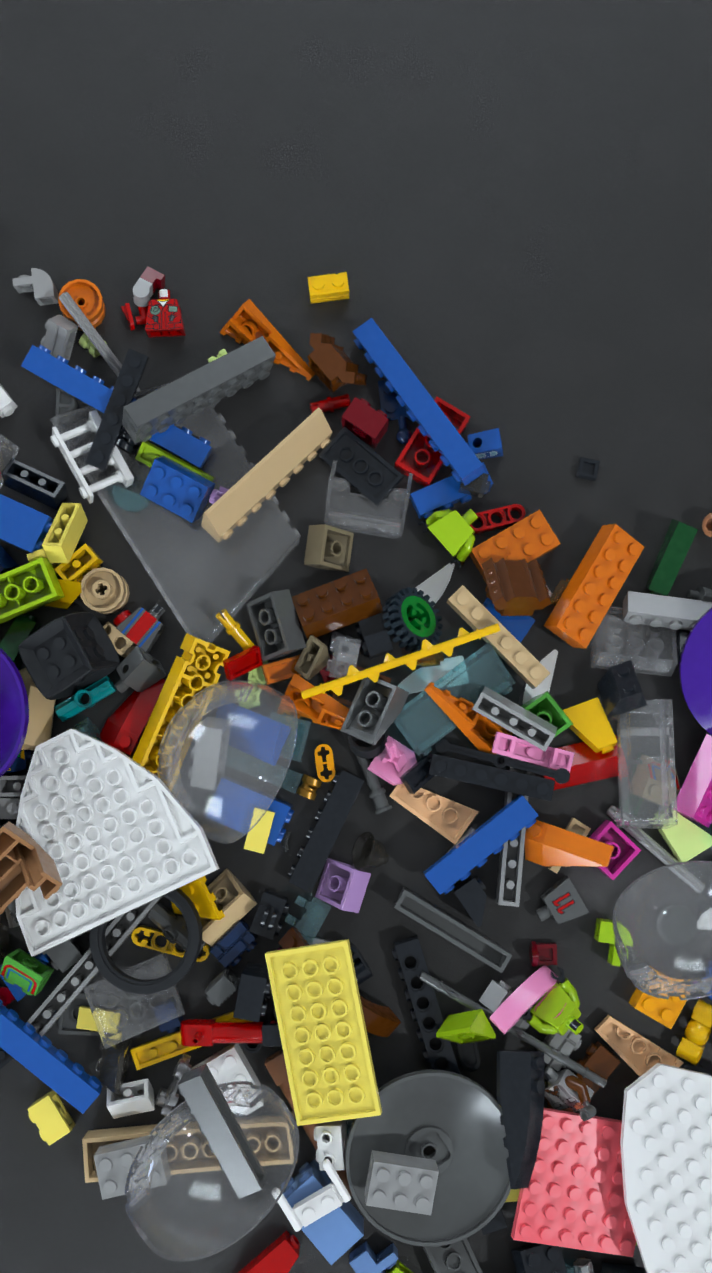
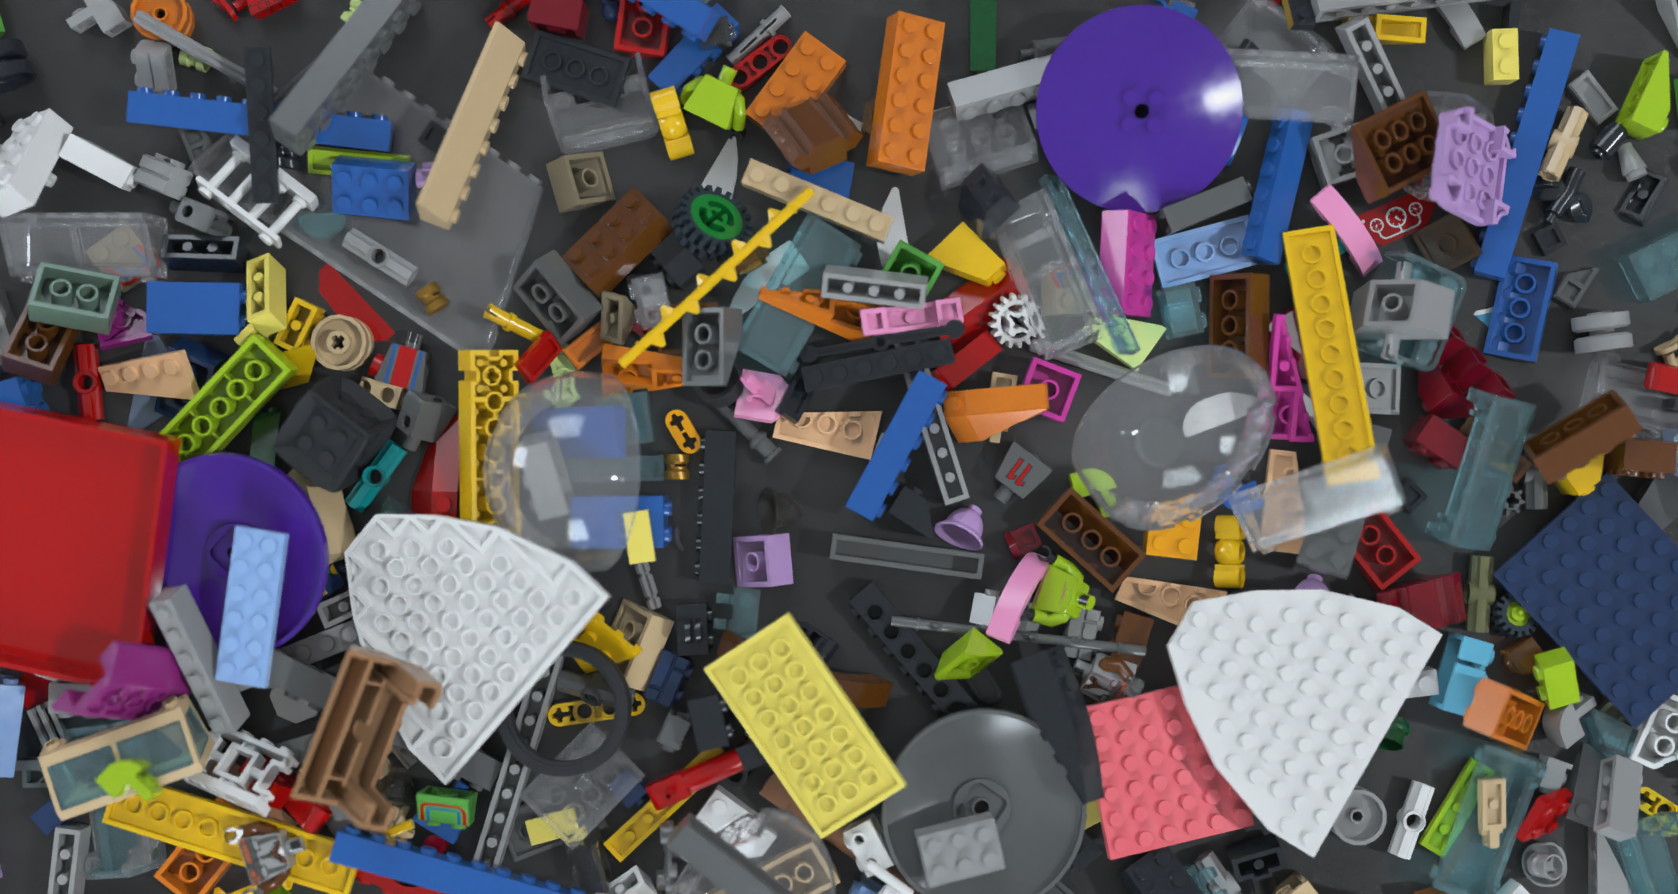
camera: 20 degrees left, 5 degrees up
(30, 416) = (163, 175): none -> light grey brick
(45, 457) = (202, 217): none -> dark grey torso
(122, 563) = (348, 302): none -> red sticker
(153, 530) = (368, 248): none -> light grey piece
(184, 587) = (432, 298): none -> pearl gold wheel
(236, 471) = (433, 136): none -> black tile
(249, 868) = (648, 585): none -> light grey axle
(414, 534) = (672, 123): none -> yellow piece
(503, 926) = (962, 528): none -> lavender hat
(524, 491) = (781, 15): none -> light grey pin
(561, 801) = (968, 360): none -> red beam
(596, 977) = (1090, 539): none -> reddish brown slope
(597, 790) = (1008, 329): none -> white gear
(685, 810) = (1100, 288): none -> clear light blue plate

